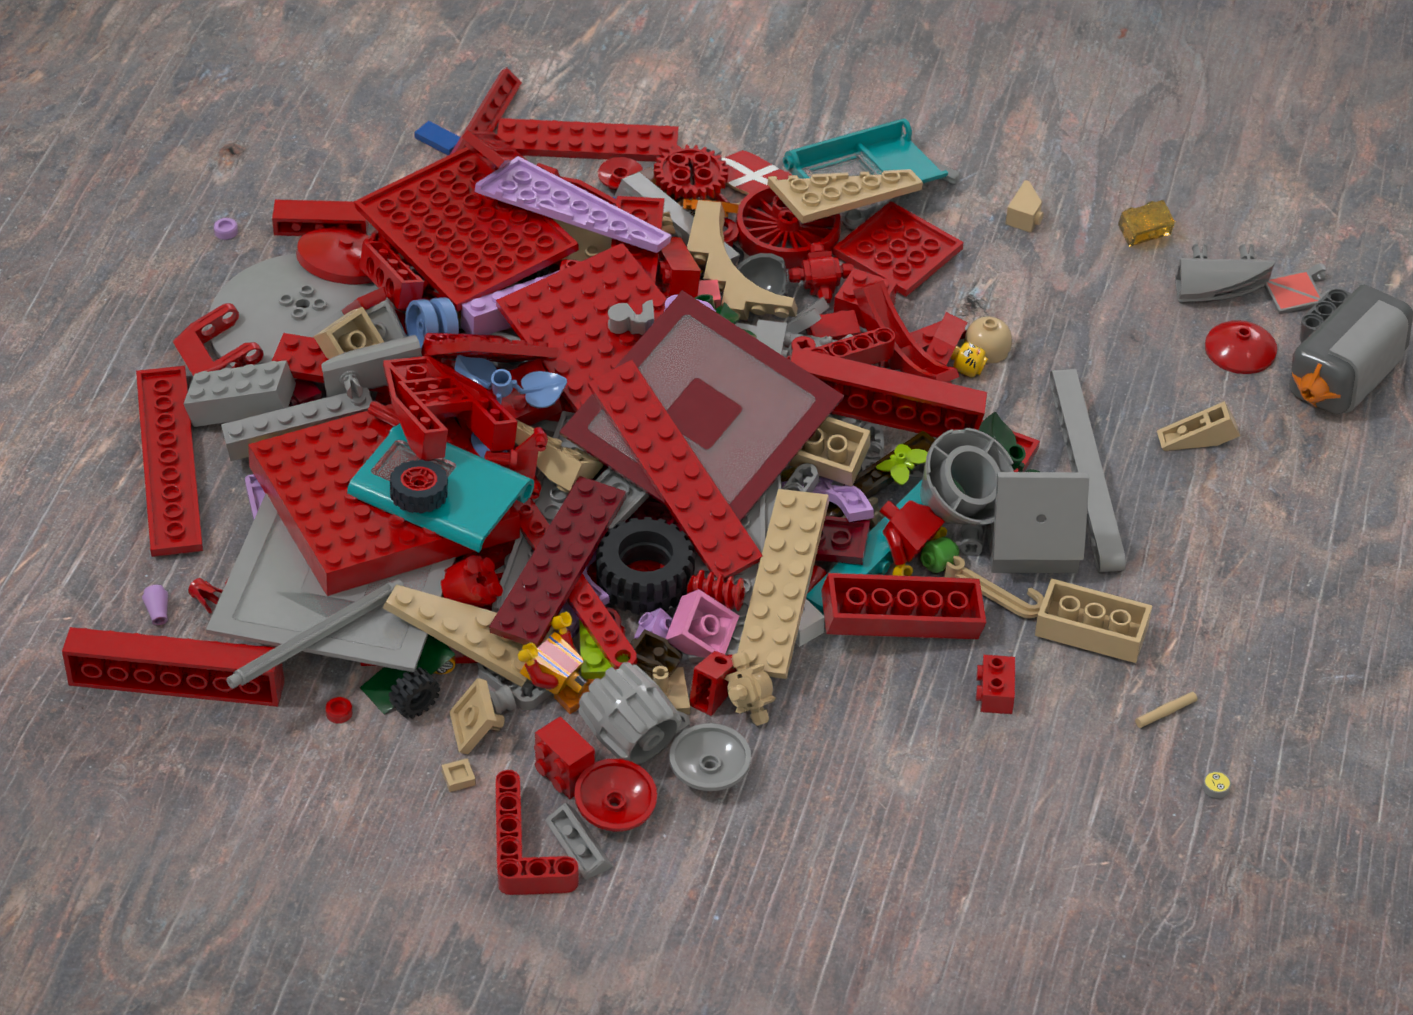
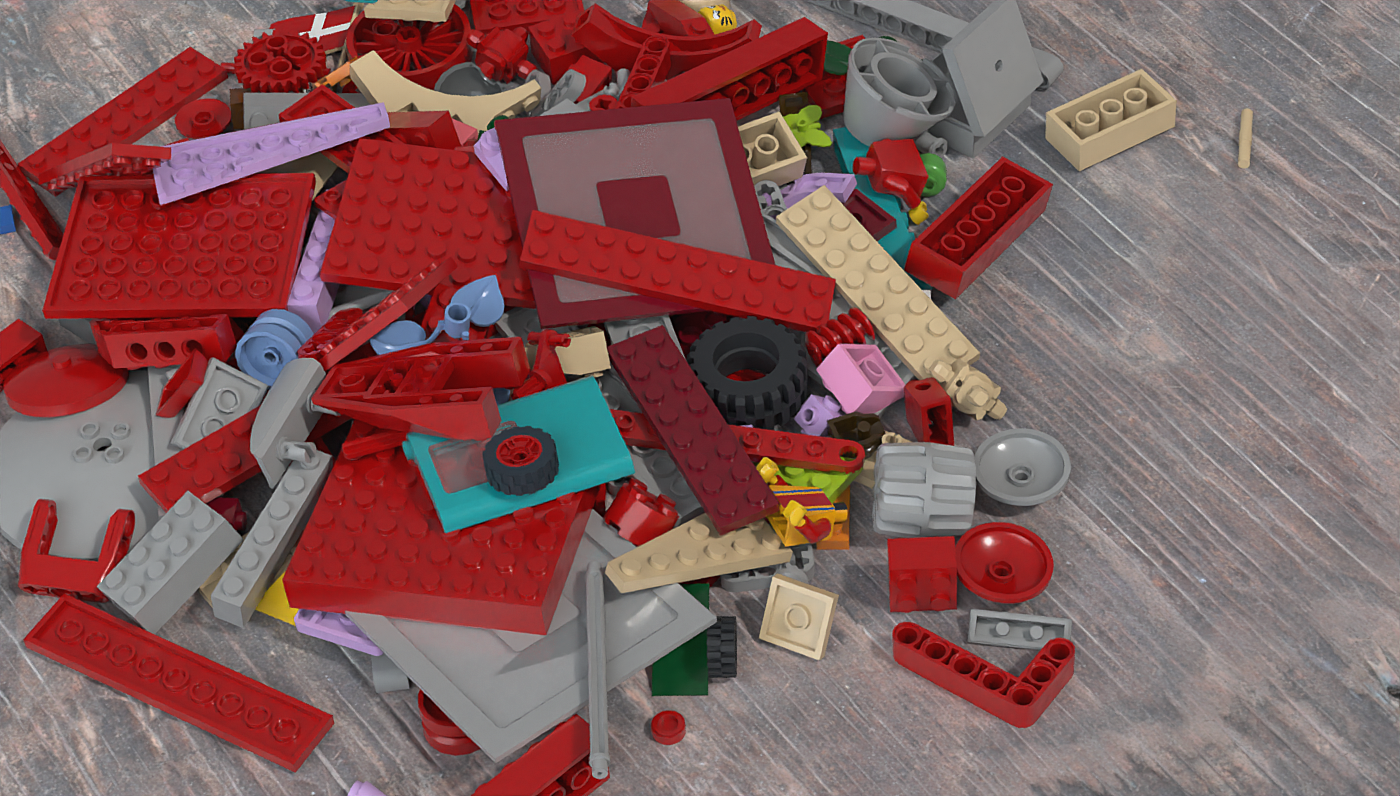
camera: 45 degrees left, 0 degrees up
(202, 589) = (396, 753): red piece -> none
(348, 333) = (221, 420): tan slope -> none
(458, 775) = (848, 677): tan tile -> none
(624, 318) = (463, 188): light grey leg -> none
(996, 593) = (959, 174): tan piece -> none
(997, 684) = (1117, 224): red brick -> none
(1216, 784) = (1359, 155): tile -> none

